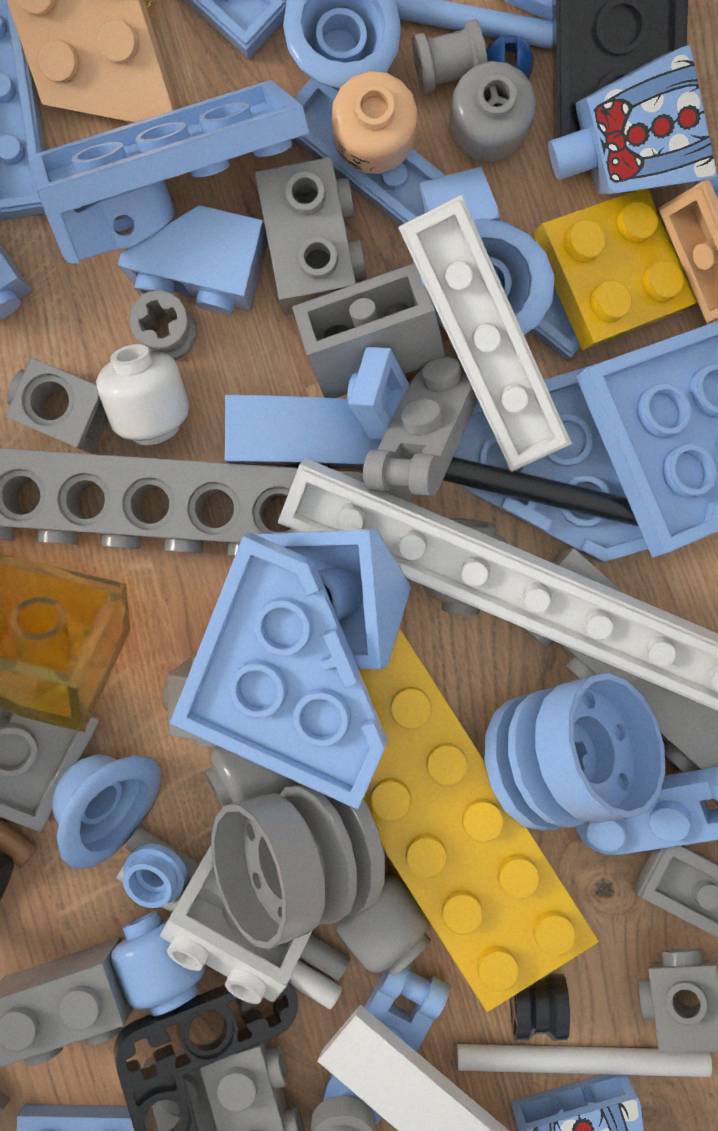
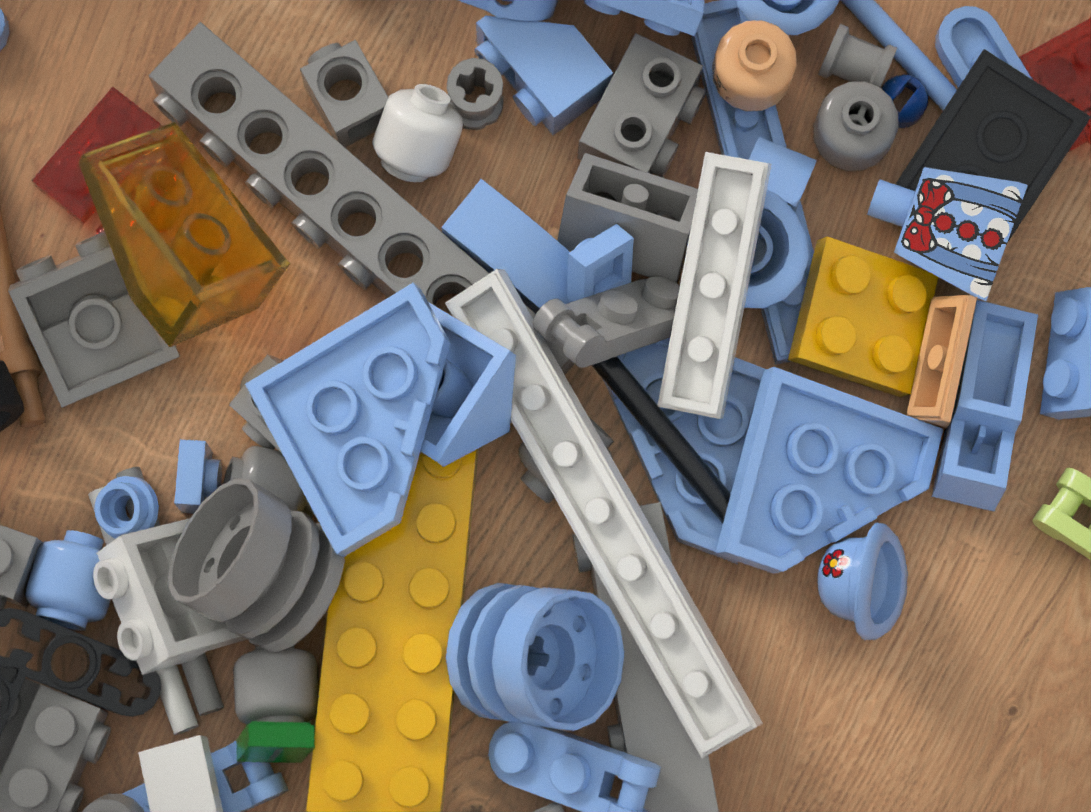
camera: 30 degrees right, 10 degrees down
(102, 805) = (132, 423): light blue hat -> none
(188, 806) = (196, 475): none -> light blue plate
(419, 974) = (275, 742): none -> green tile

